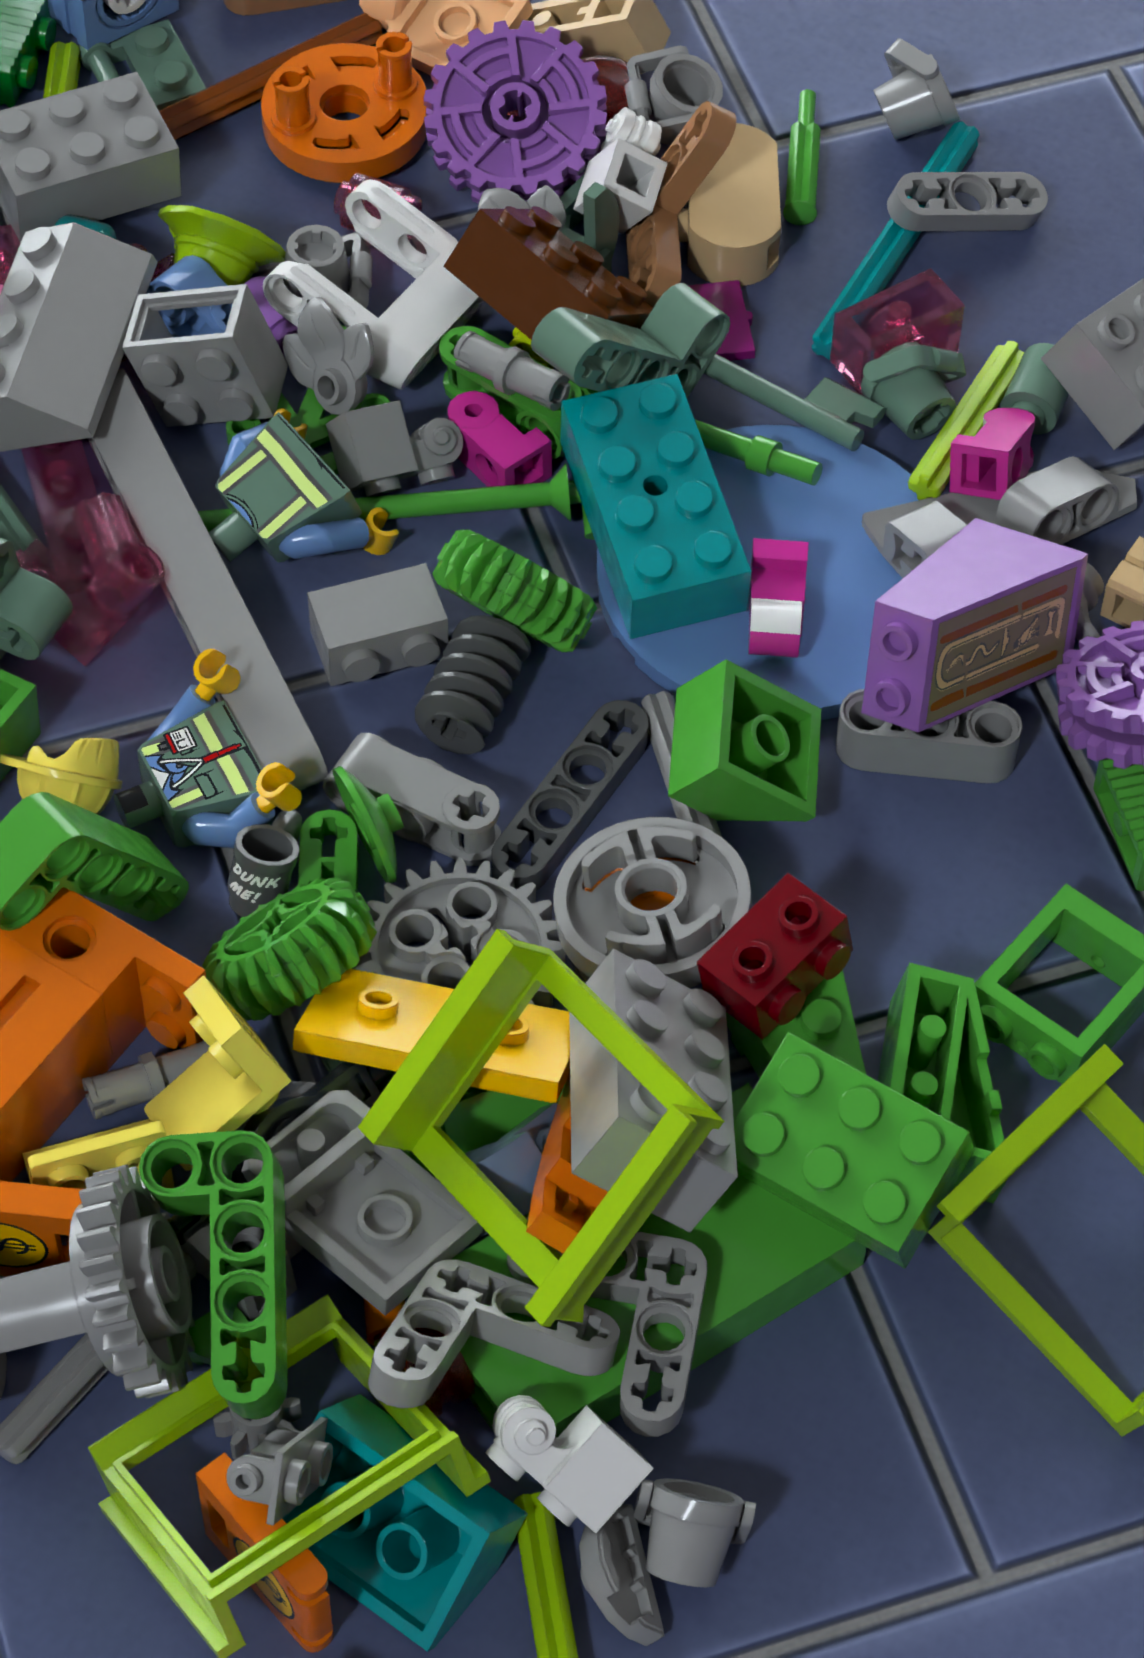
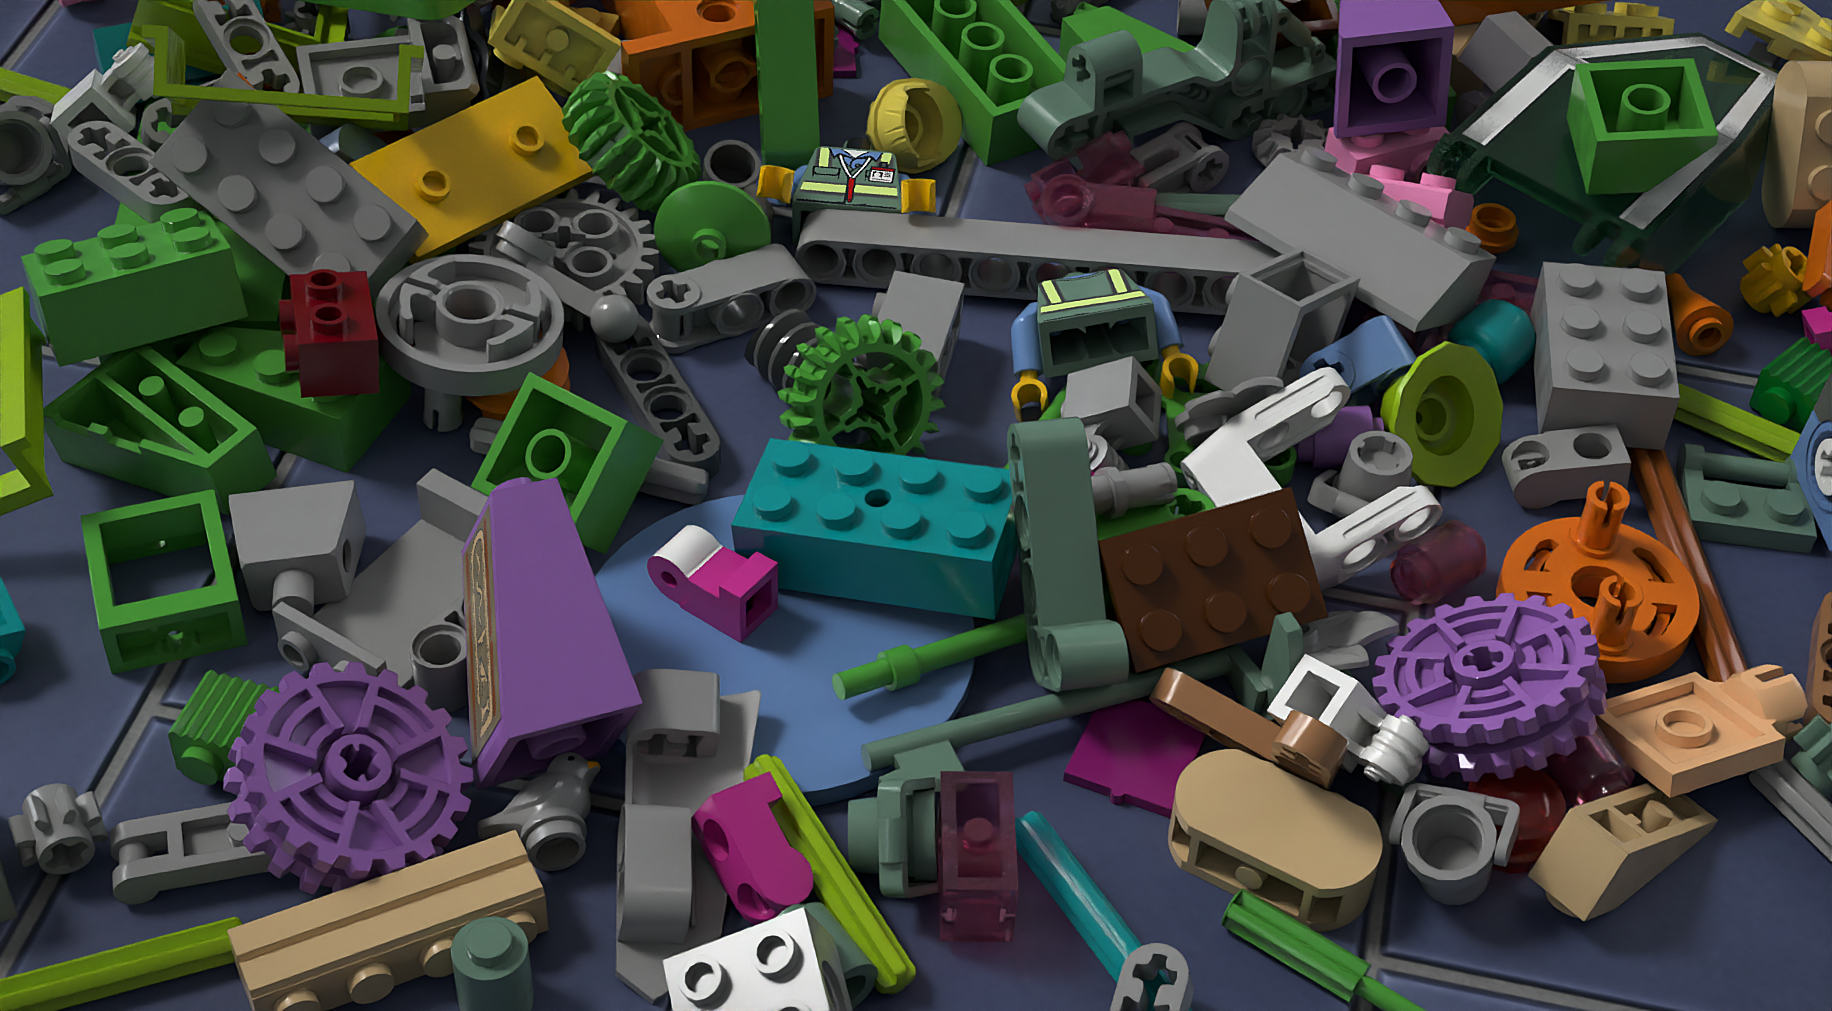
camera: 120 degrees right, 10 degrees down
(210, 168) = (1565, 464): none -> light grey leg
(529, 909) = (611, 316): none -> light grey piece
(937, 826) = (393, 593): none -> light grey panel
(965, 905) = (298, 543): none -> light grey torso

